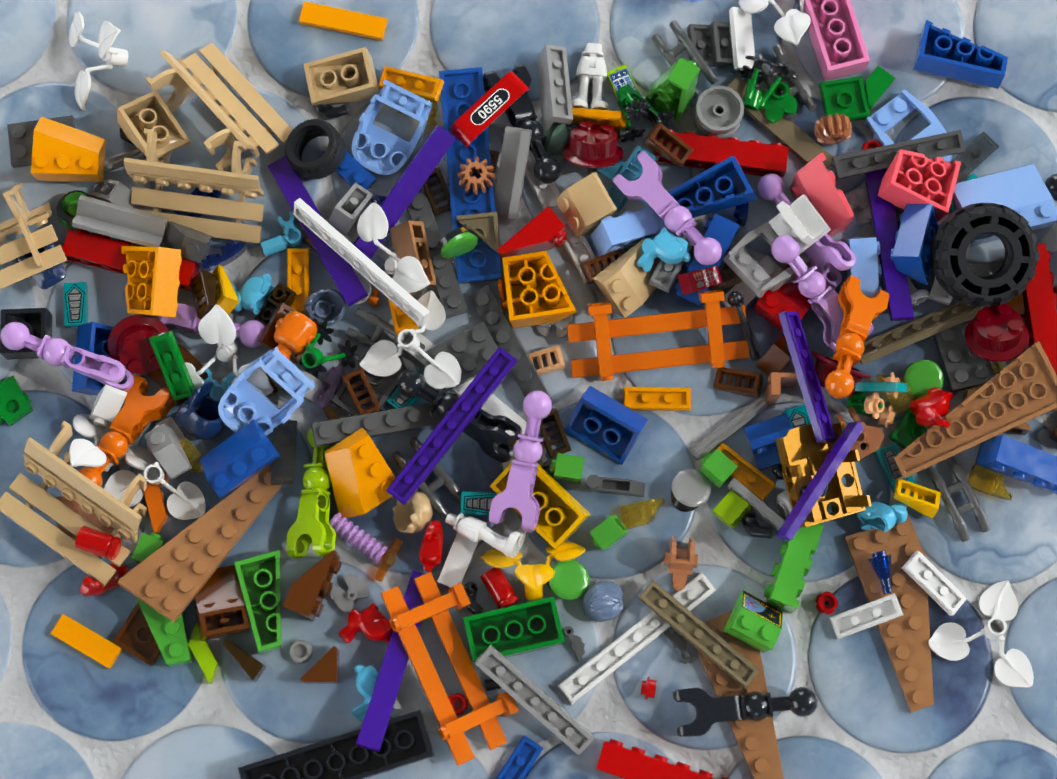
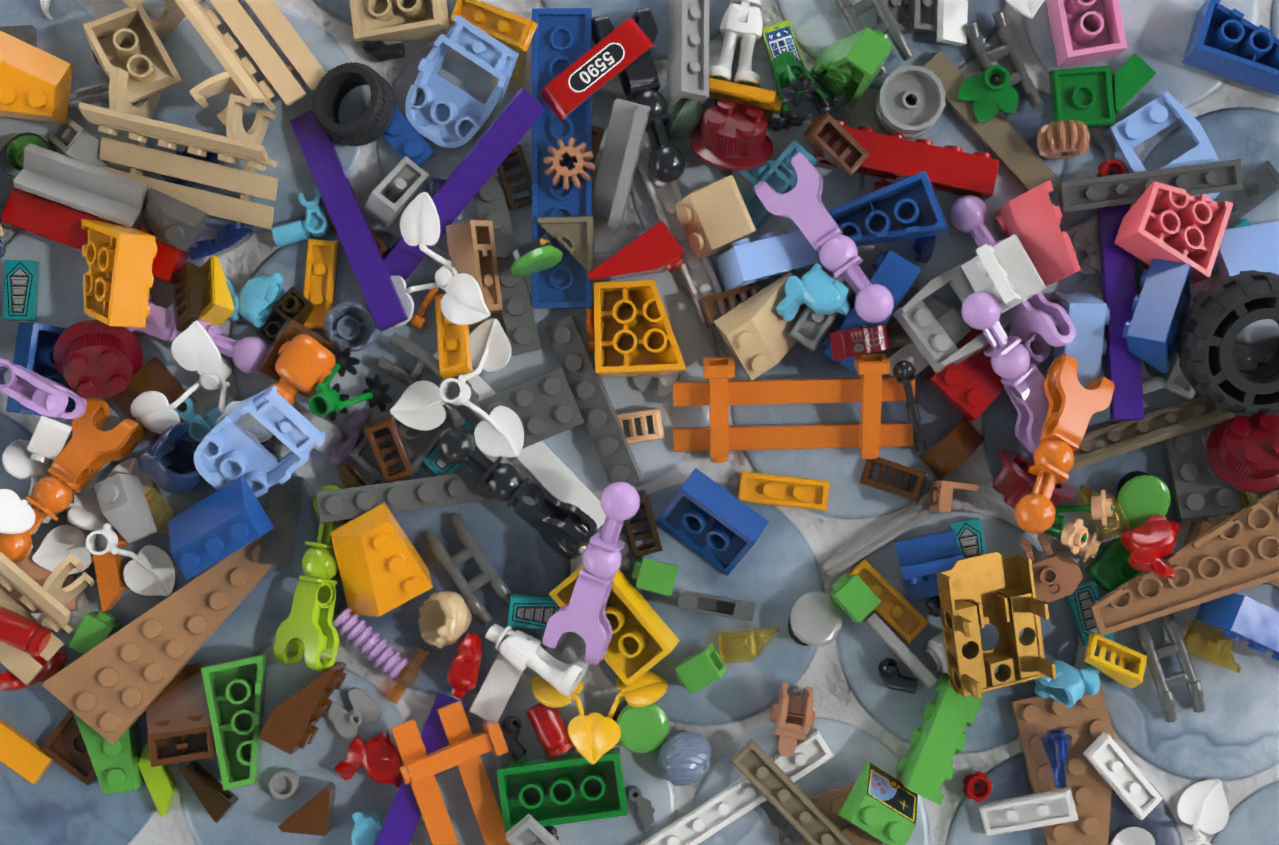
camera: 10 degrees right, 10 degrees up
(172, 365) = (135, 394): green tile -> none
(361, 262) = (400, 274): white tile -> none
(451, 426) = (504, 513): dark purple tile -> none
(731, 509) = (865, 650): lime piece -> none
(752, 97) = (958, 85): plant -> none
(807, 377) = (989, 491): dark purple tile -> none
(820, 481) = (992, 641): dark purple tile -> none
(881, 387) = (1089, 514): teal tile -> none

